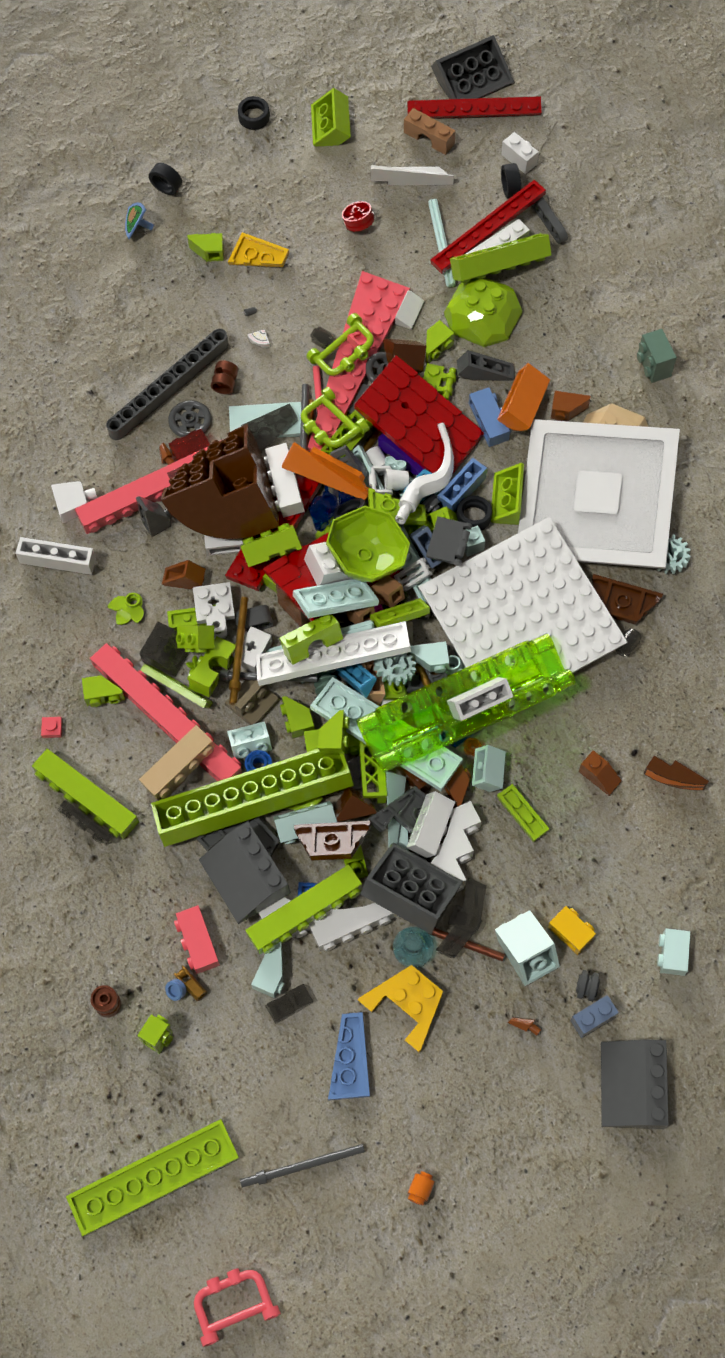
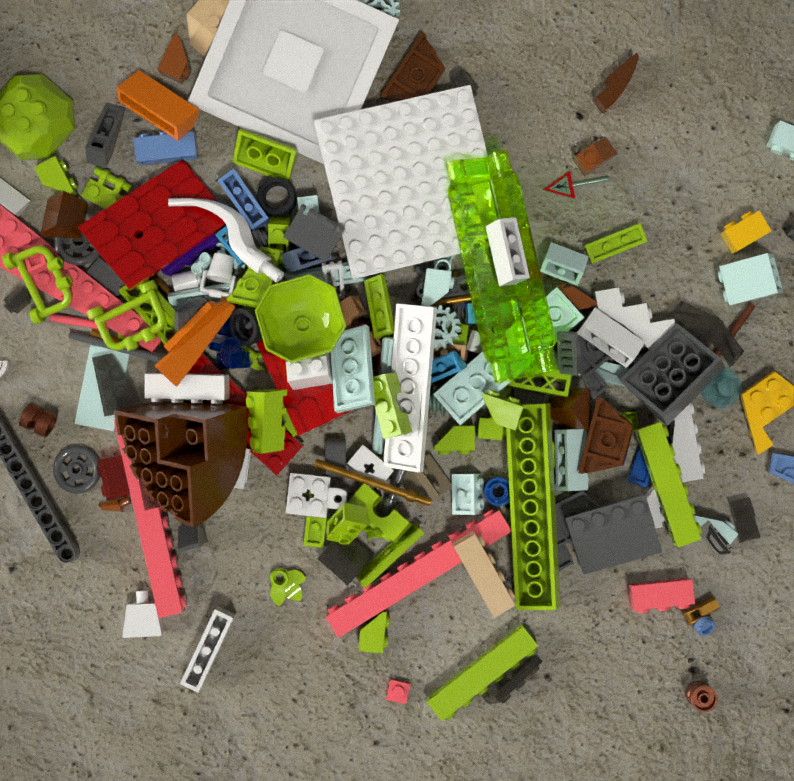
camera: 70 degrees left, 20 degrees up
(156, 1033) = (748, 655): lime brick -> none
(184, 575) = (266, 519): dark orange slope -> none
(261, 972) = (715, 540): none -> clear smoke sticker
(403, 783) = (567, 365): none -> dark grey slope
(564, 755) = (564, 185): none -> piece

